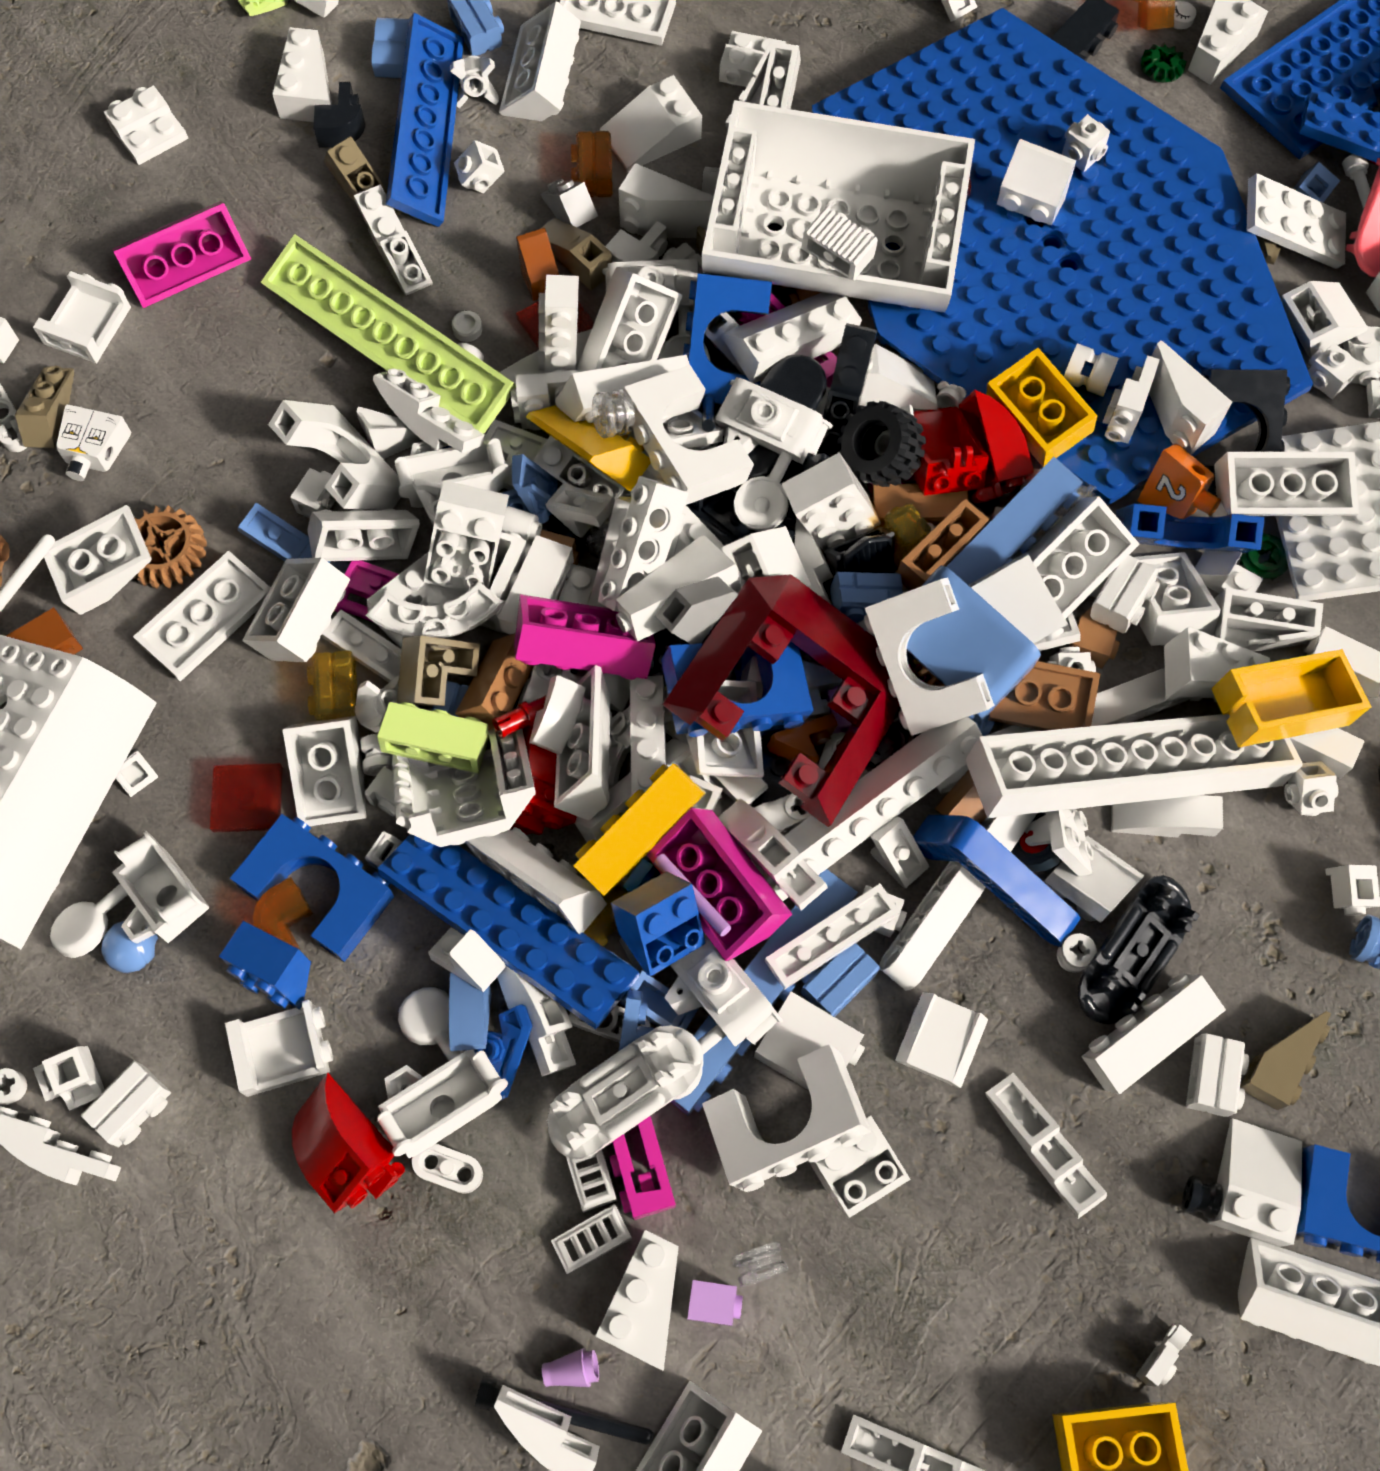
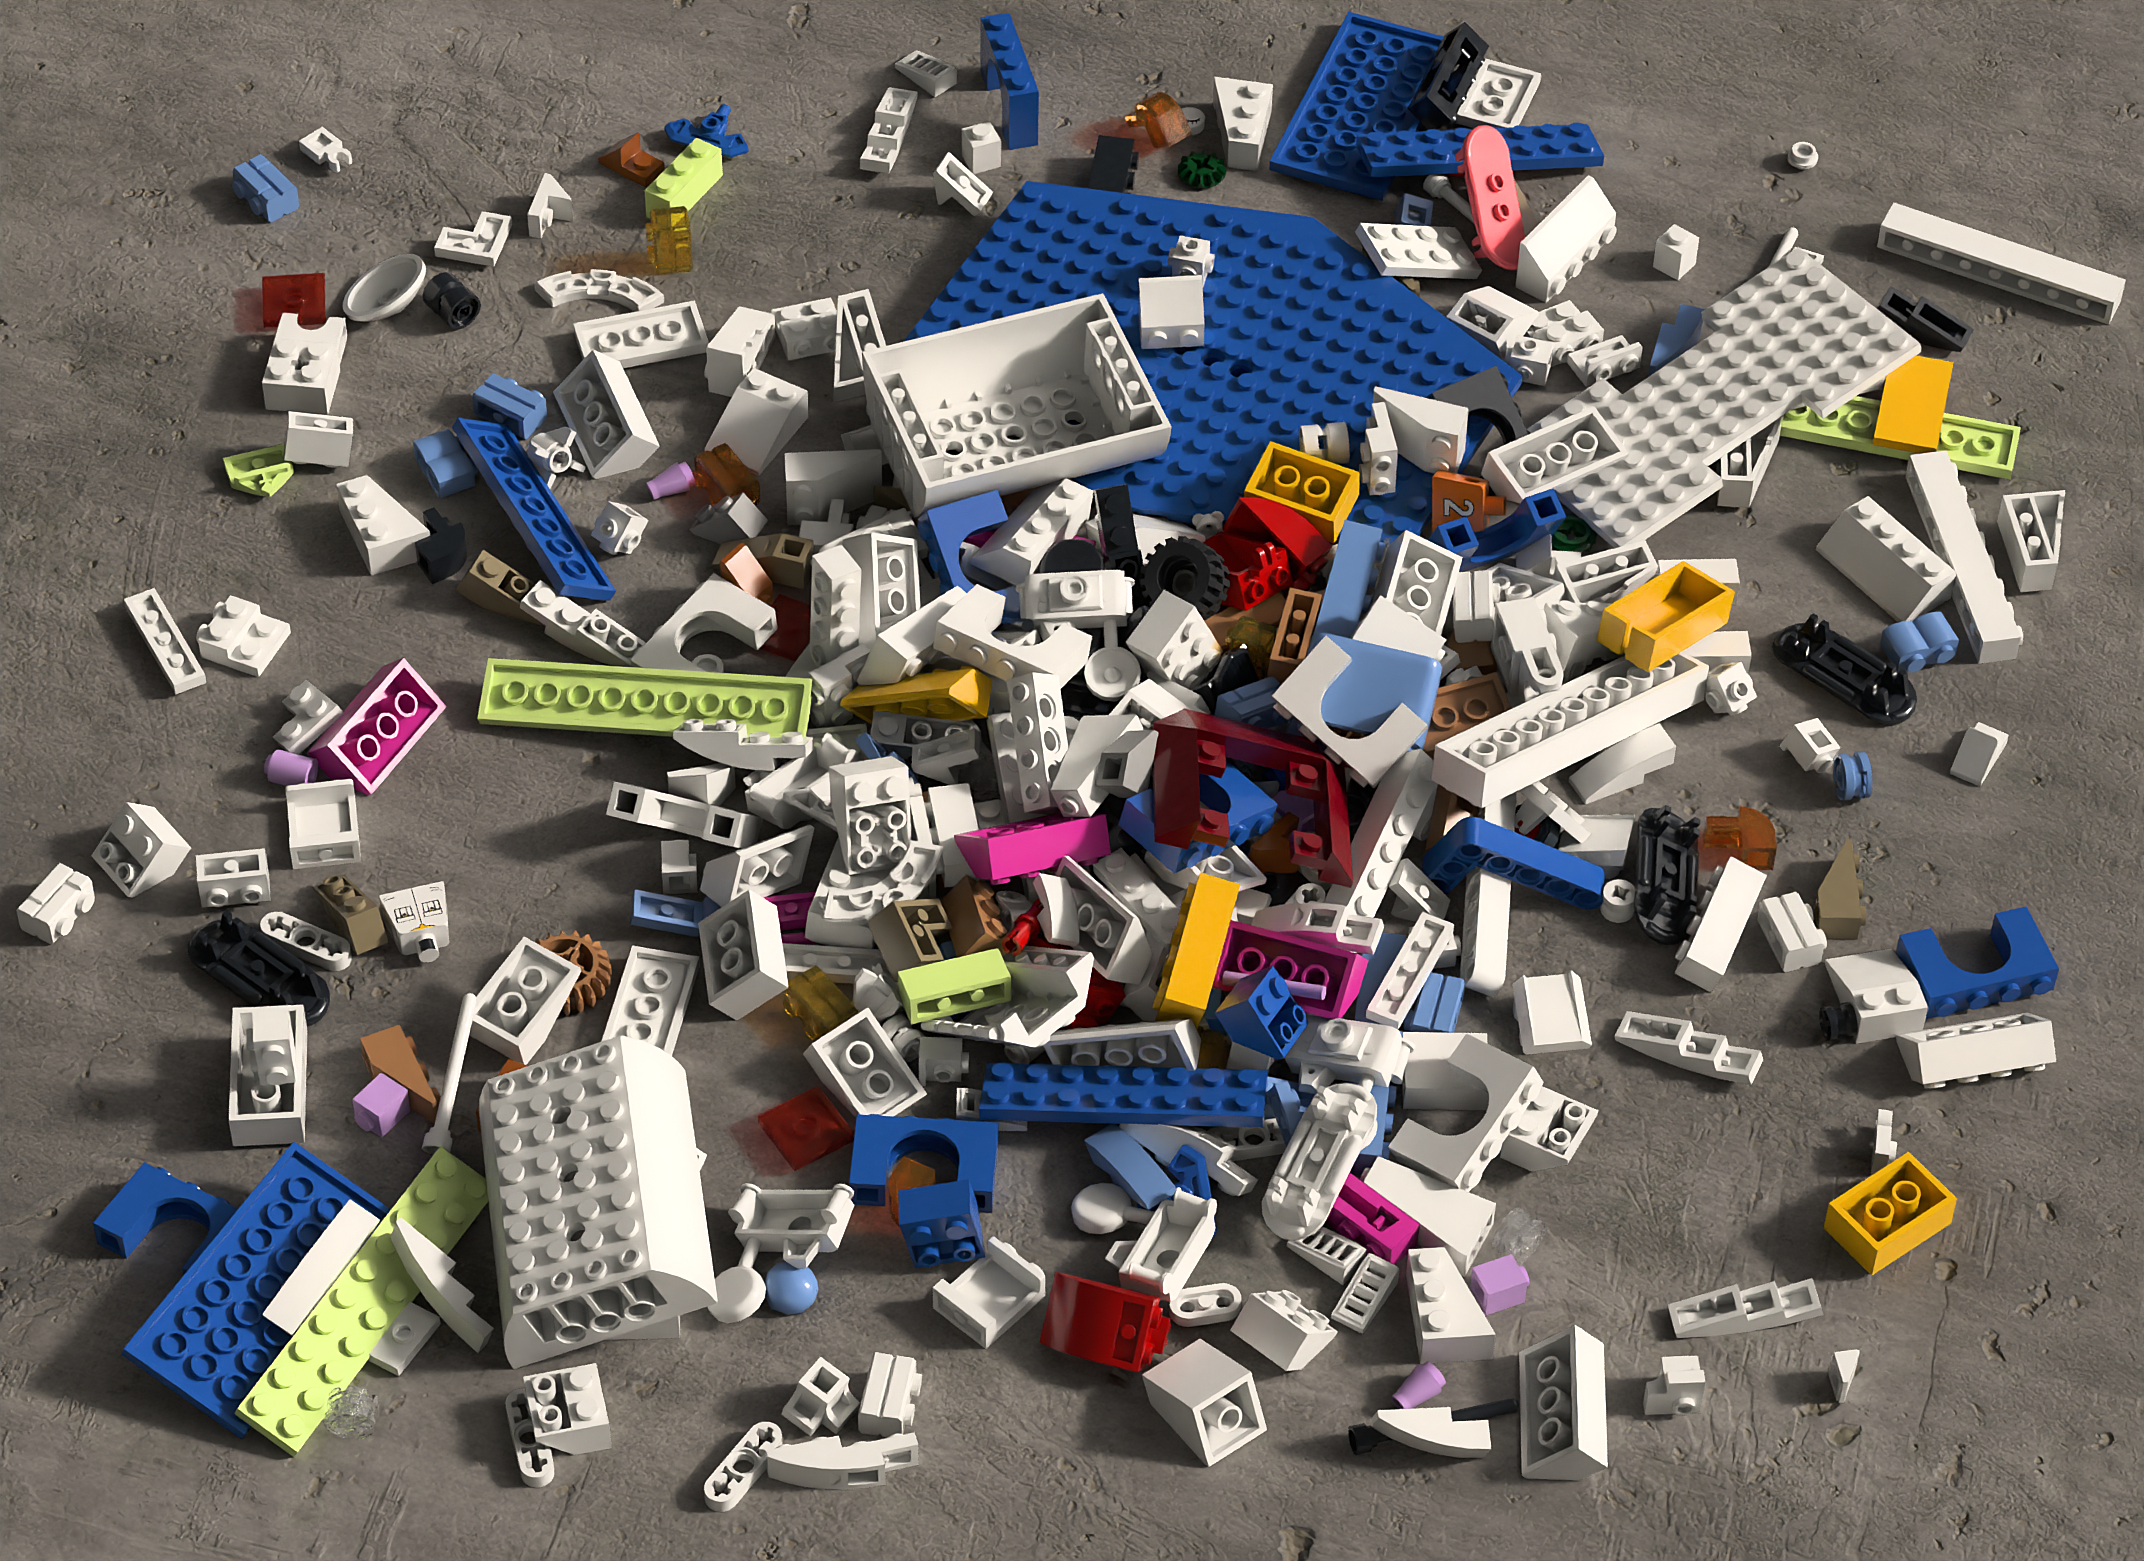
camera: 30 degrees left, 20 degrees down
(87, 101) = (165, 641): none -> white plate
(95, 258) = (290, 768): none -> lavender brick
(142, 218) = (313, 716): none -> white plate
(376, 1272) = (1206, 1400): none -> white slope
(467, 958) = (1115, 1133): white slope -> none
(494, 1236) = (1283, 1329): none -> white slope
(495, 272) = (715, 607): none -> white arch
(552, 145) = (672, 481): none -> lavender cone
(614, 412) = (941, 649): clear wheel -> none
(680, 51) = (738, 349): none -> white wedge
(706, 1203) = (1444, 1212): none -> white slope
(840, 243) = (1048, 424): white brick -> none
(1140, 668) = (1525, 649): none -> white brick
(1240, 947) = (1748, 833): none -> clear orange brick

